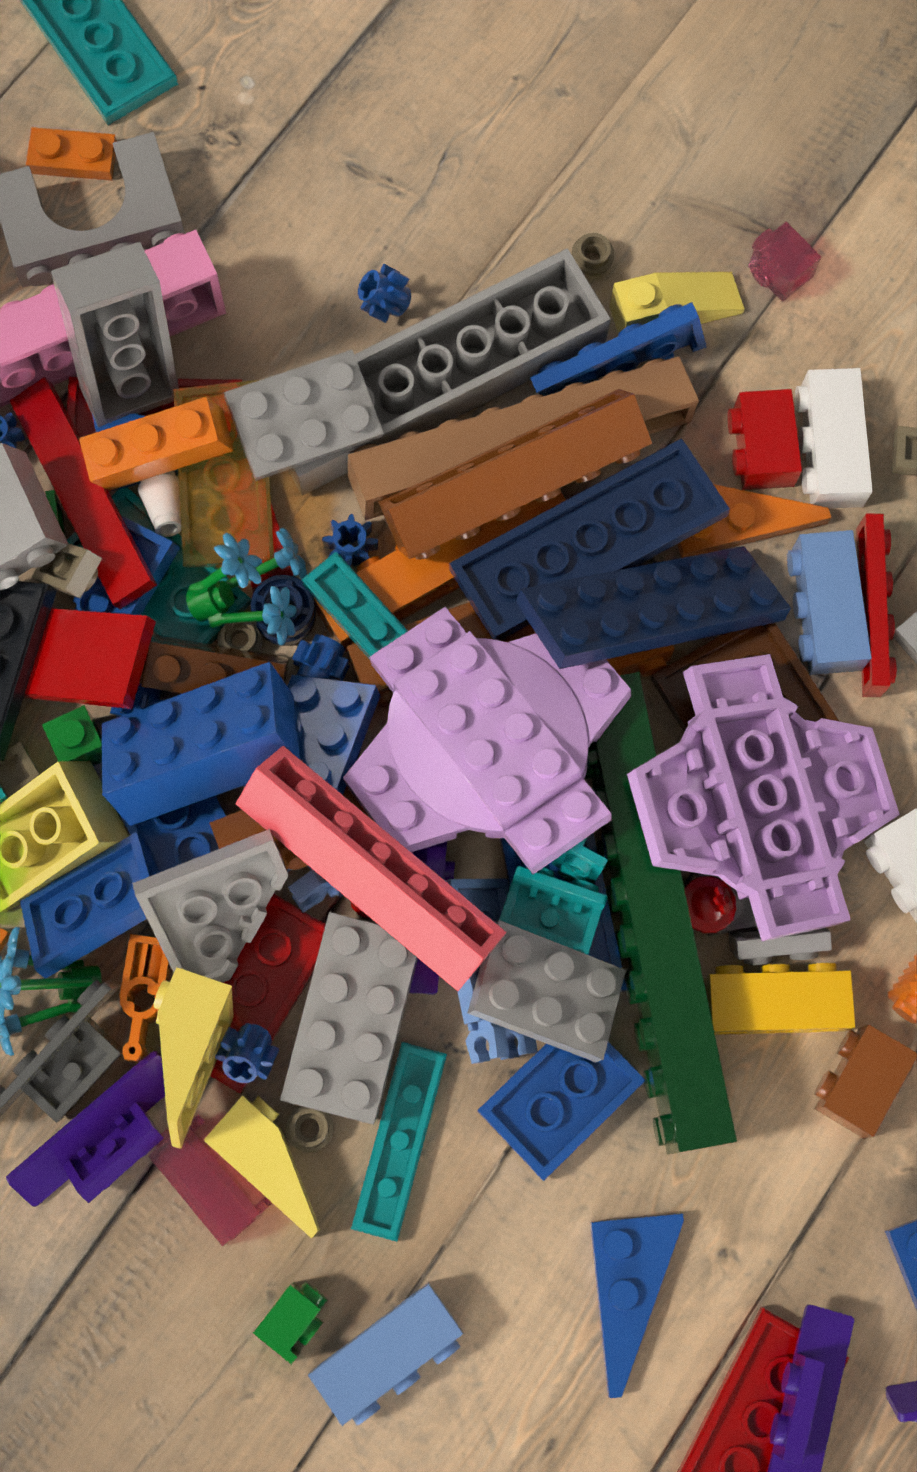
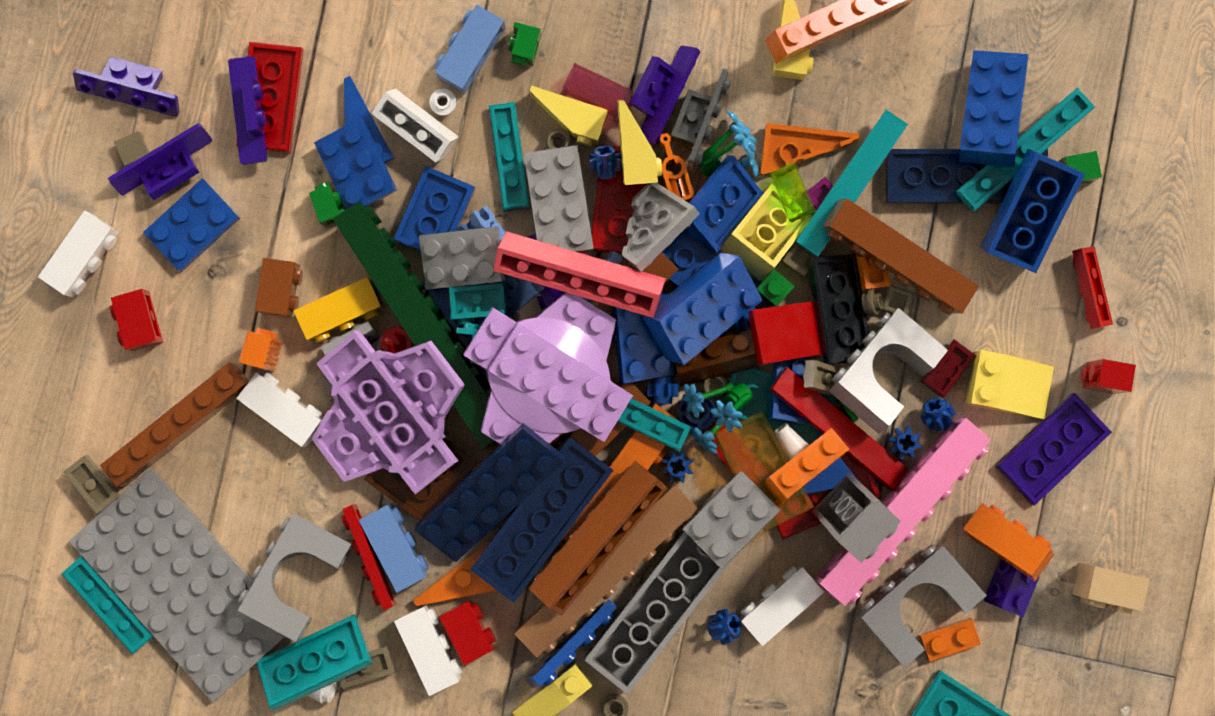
camera: 160 degrees right, 10 degrees up
(289, 290) = (780, 604): none -> white brick
(486, 1286) = (446, 109): none -> white plate
(534, 1256) = (415, 125): none -> white brick
(661, 1230) = (355, 165): none -> blue plate
(732, 1186) = (326, 203): none -> green brick

